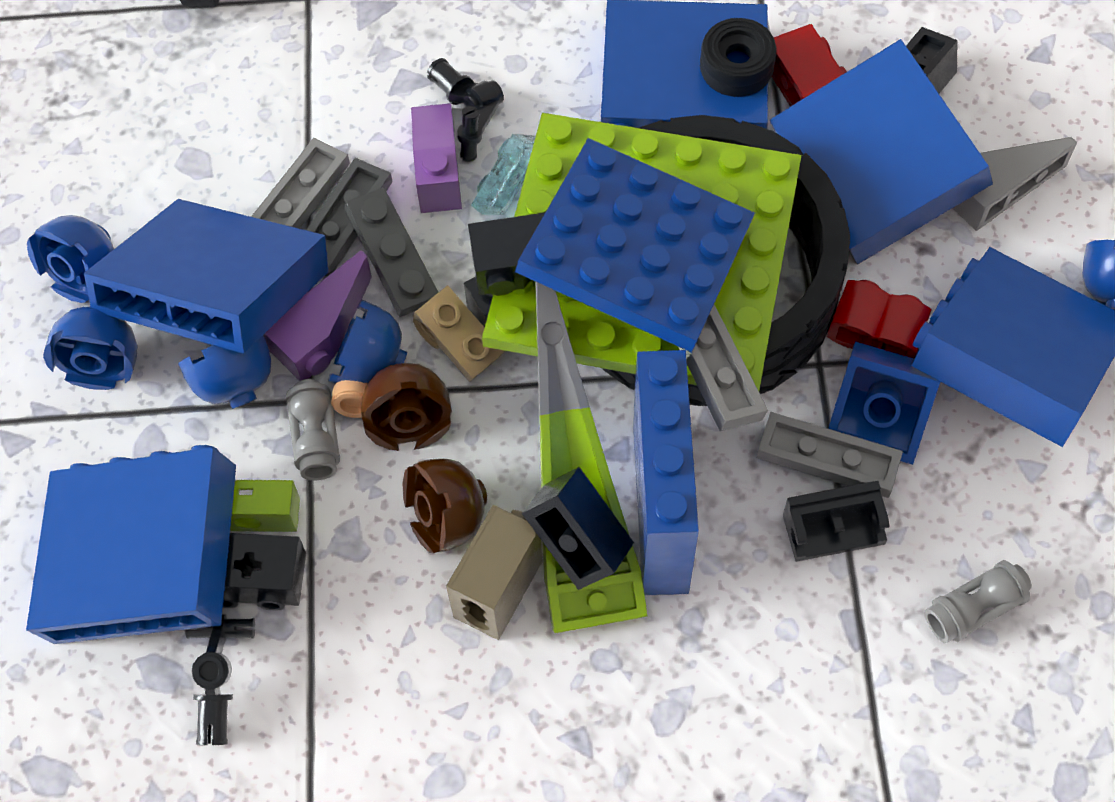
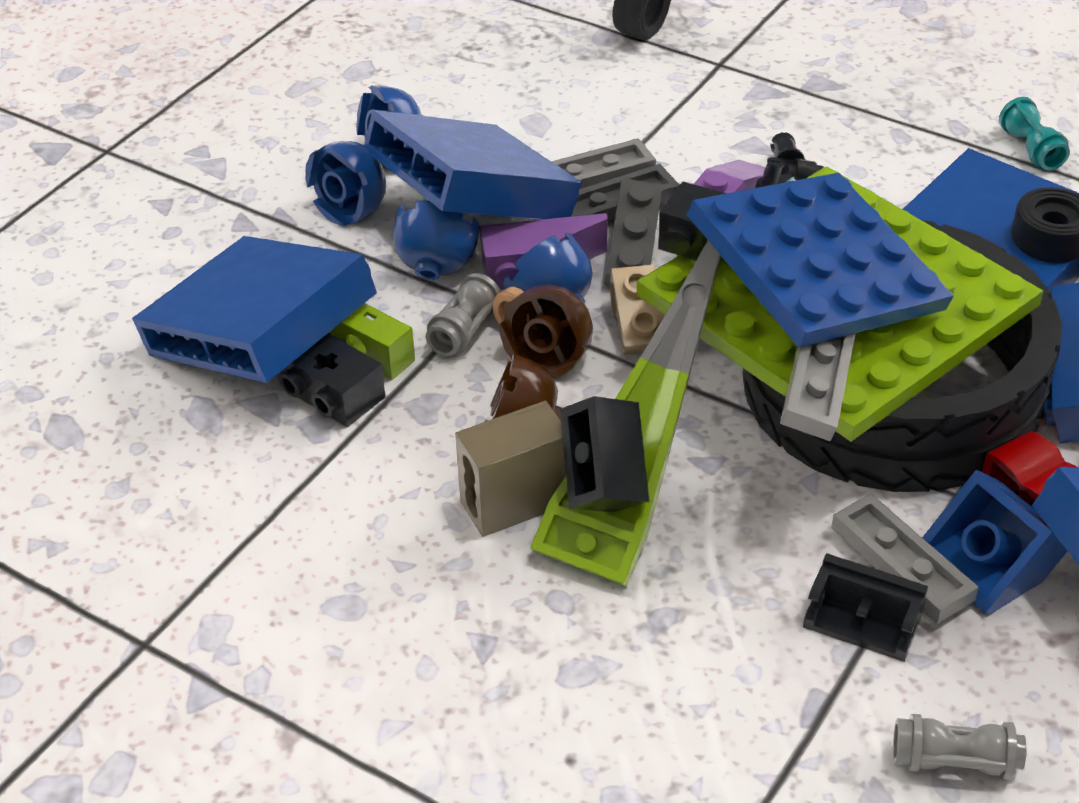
camera: 35 degrees right, 20 degrees down
(211, 672) = (233, 414): black pin -> none
(664, 472) = (712, 459): blue brick -> none

